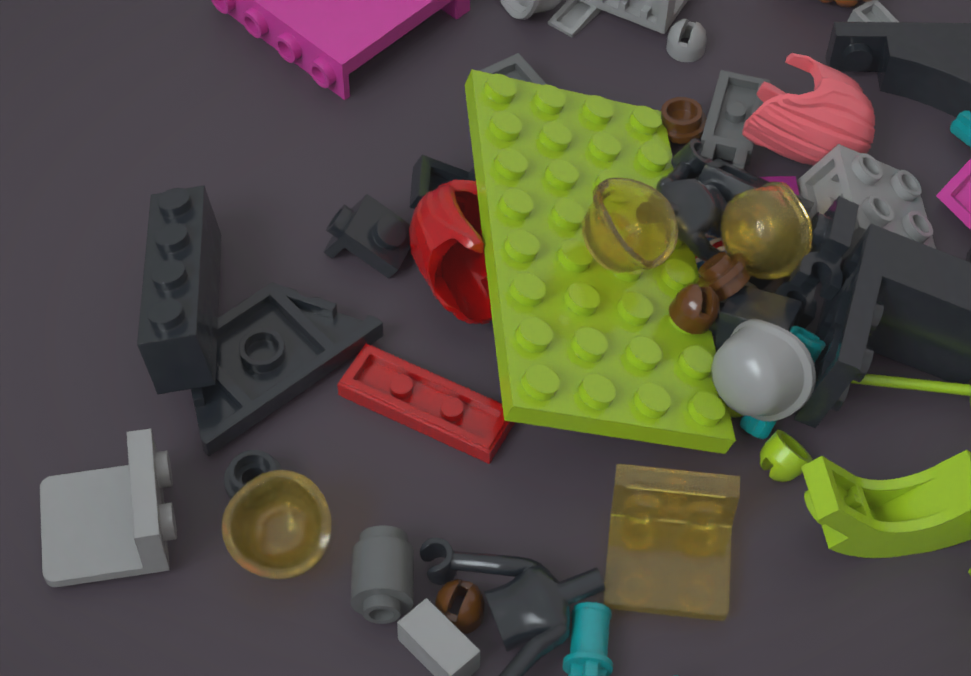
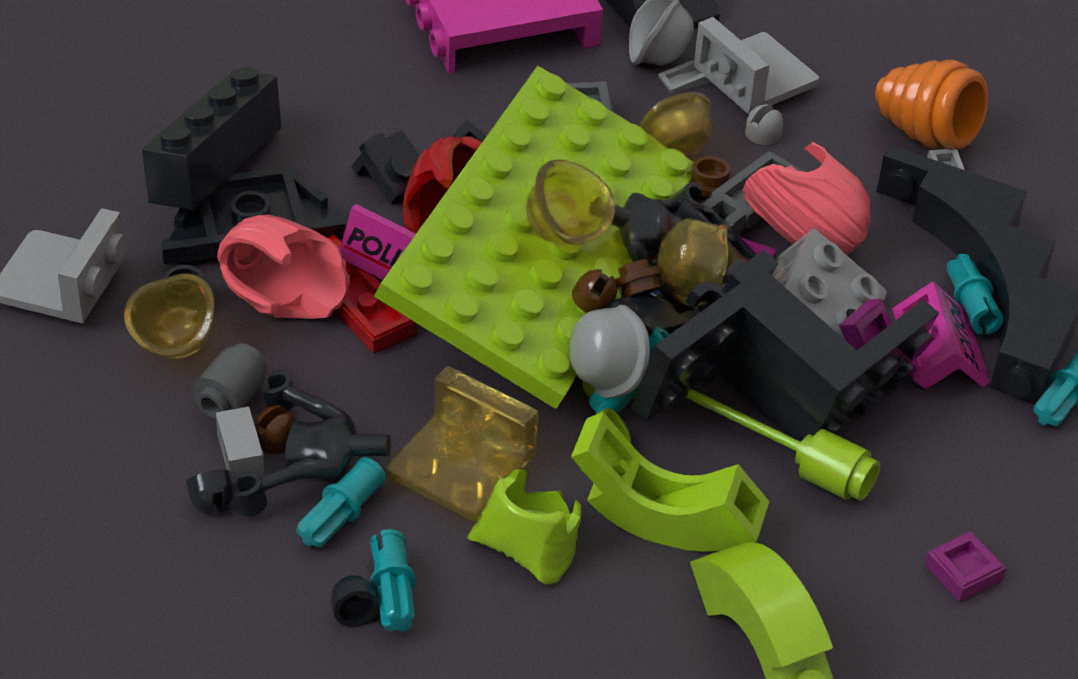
camera: 25 degrees right, 10 degrees down
(355, 413) = (283, 268): none -> coral hair
(444, 345) = (373, 241): none -> dark pink panel
(625, 76) = (681, 122): none -> clear yellow helmet
(790, 605) = (529, 527): none -> lime hair
(943, 227) = (865, 323): none -> magenta tile

